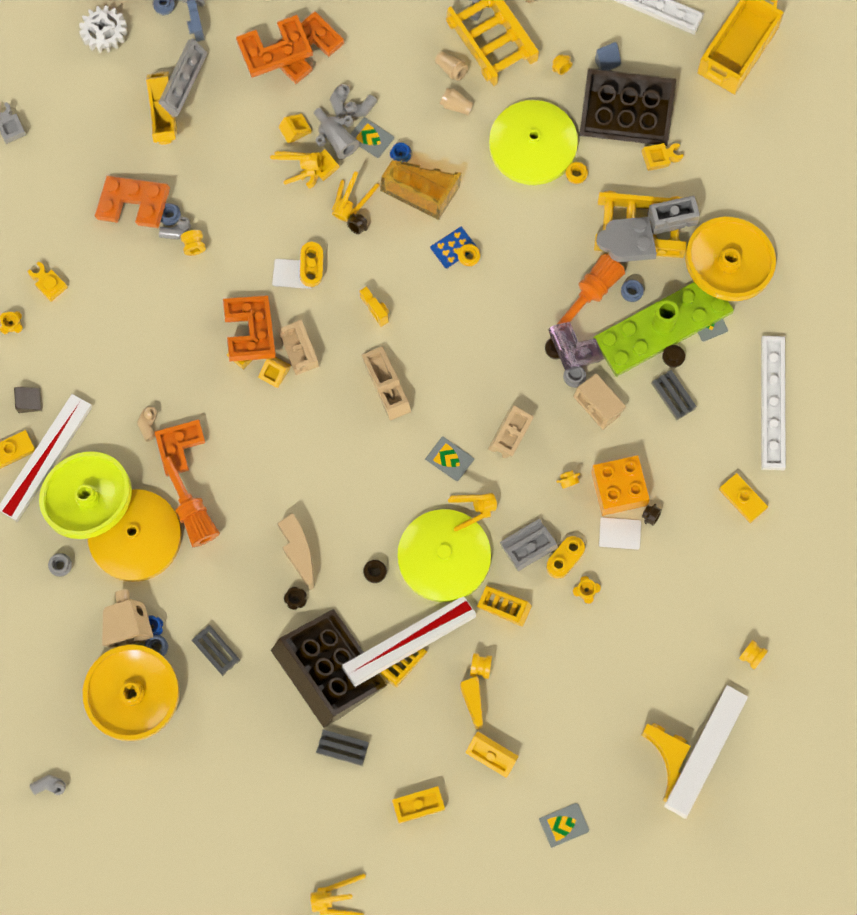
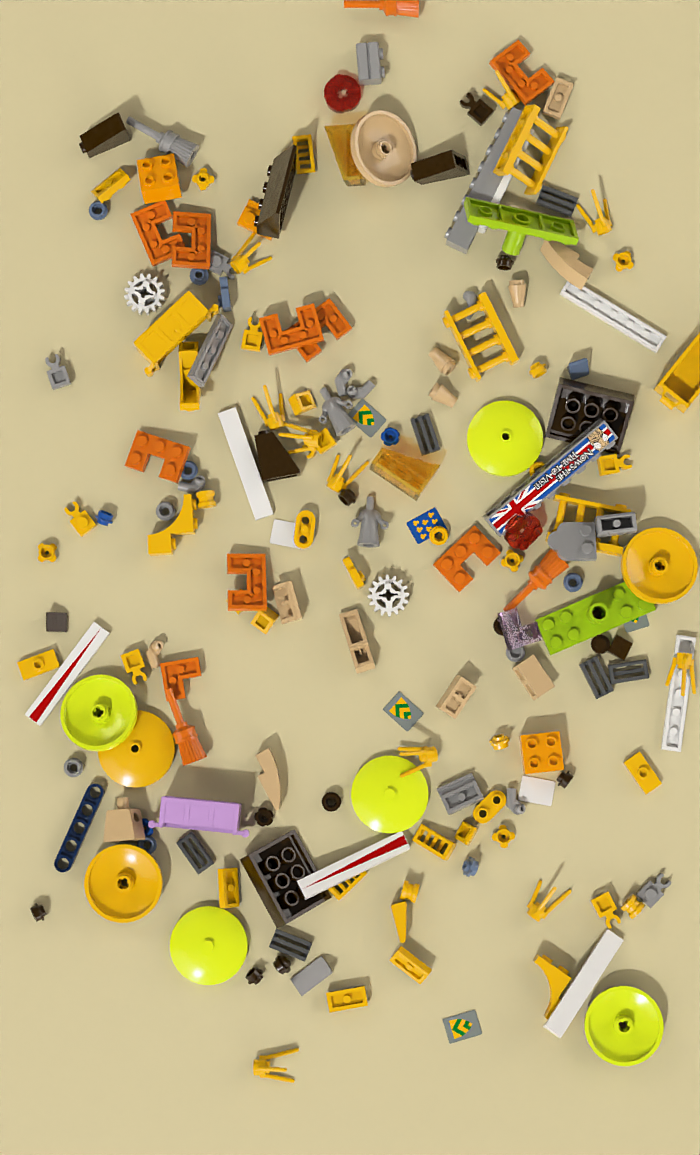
camera: 10 degrees right, 10 degrees up
(29, 741) = (38, 912): none -> dark brown plate
(48, 783) = (51, 947): light grey arm -> none
(72, 647) = (72, 835): none -> dark blue beam
(75, 276) = (104, 517): none -> blue plate
(123, 436) = (134, 663): none -> yellow plate
(139, 54) = (171, 329): none -> yellow container
(143, 256) = (163, 505): none -> light grey plate
(147, 295) = (185, 524): none -> yellow arch
(217, 601) = (200, 815): none -> lavender container
(230, 63) = (252, 338): none -> yellow plate
(236, 201) = (245, 463): none -> white tile
(242, 759) = (208, 945): none -> neon yellow dish
(260, 685) = (228, 887): none -> yellow plate
(264, 147) = (274, 420): none -> yellow plant
(269, 190) = (273, 458): none -> dark brown slope
(302, 789) = (254, 975): none -> dark brown plate
(334, 771) = (282, 964): none -> dark brown plate
(372, 782) = (311, 975): none -> light grey slope
(387, 260) = (369, 525): none -> light grey piece
(426, 326) = (387, 587): none -> white gear
(433, 131) = (420, 419): none -> dark grey tile
(487, 283) = (472, 542): none -> orange plate
(541, 591) = (466, 833): none -> yellow slope
(551, 629) = (470, 867): none -> sand blue plate
(555, 268) = (511, 555): none -> yellow plate
(577, 236) = (528, 536): none -> clear red plate
(591, 174) = (552, 475): none -> brick
(592, 549) = (512, 803): none -> light grey arm
(639, 671) = (538, 909): none -> yellow plant
(695, 397) = (612, 674): none -> dark grey tile
(697, 357) = (619, 647): none -> dark brown slope
(719, 659) = (604, 907): none -> yellow plate
(774, 636) = (651, 893): none -> light grey plate
(775, 363) = (684, 662): none -> yellow plant
(783, 788) = (628, 1044): none -> neon yellow dish

